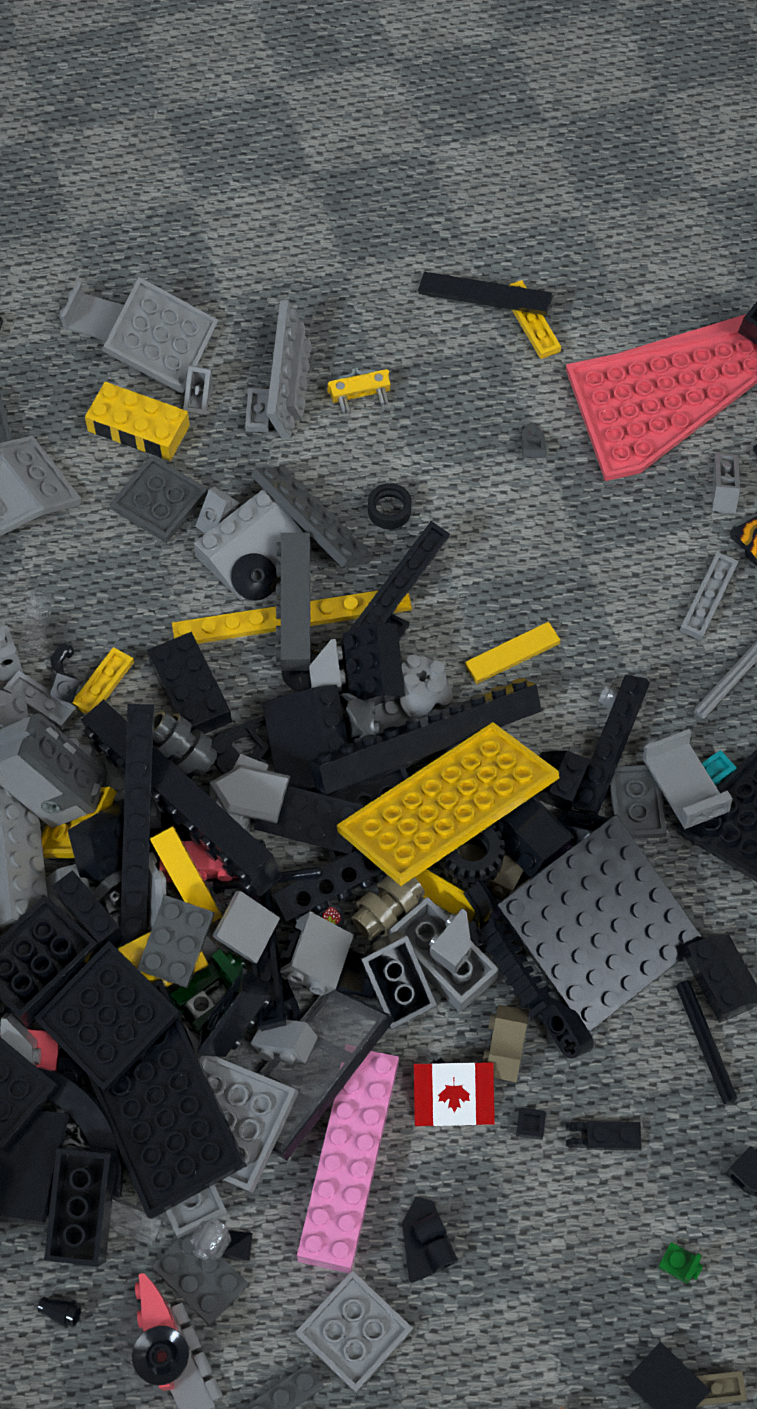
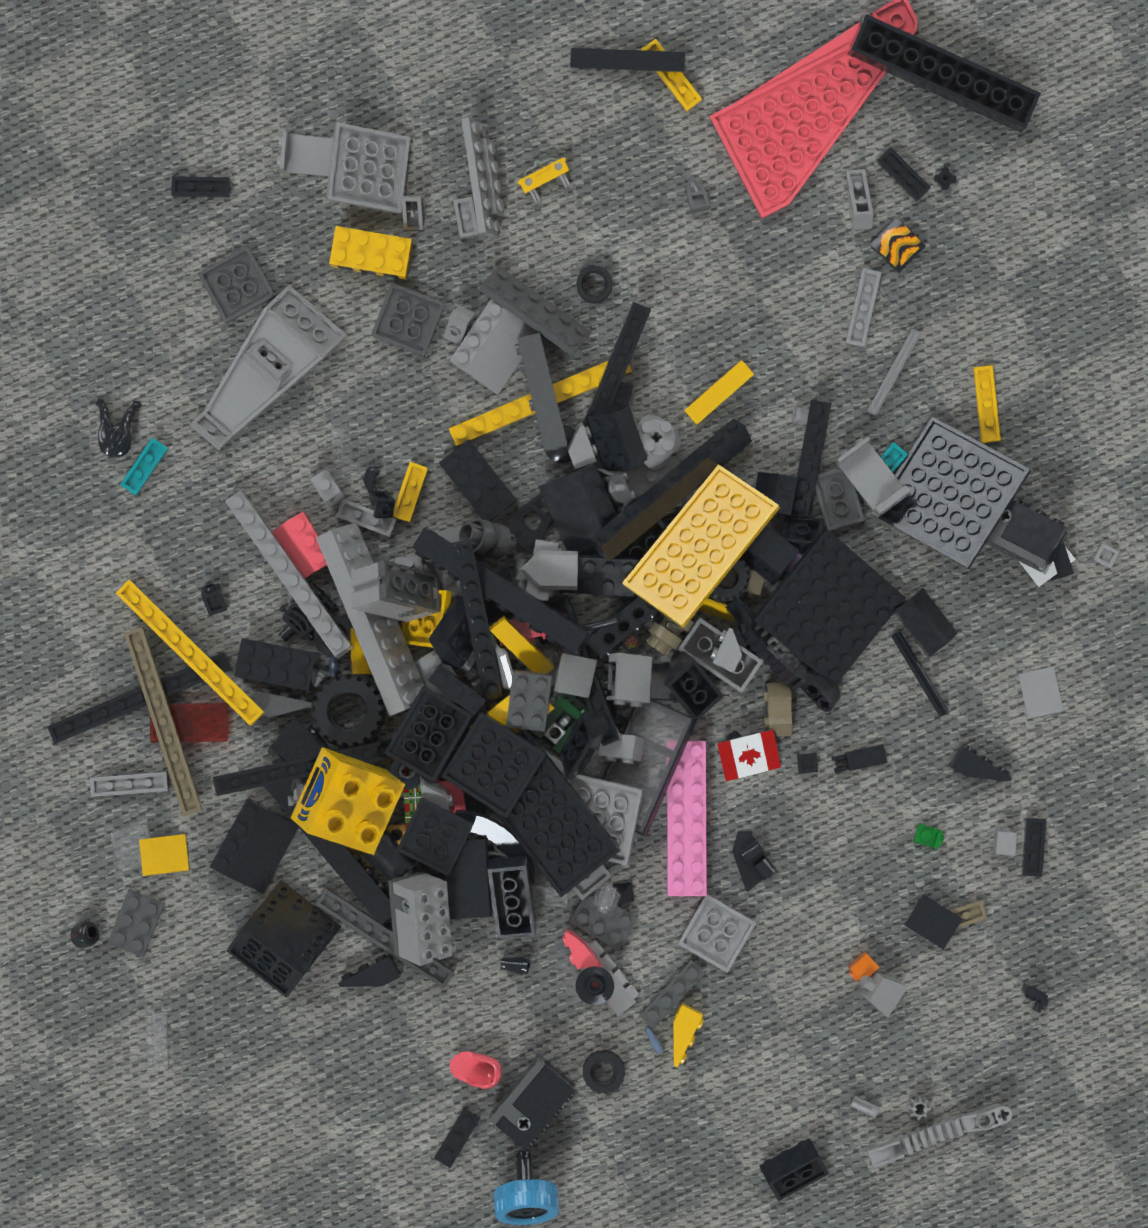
camera: 15 degrees left, 25 degrees up
(243, 578) = (495, 371): black dish -> none

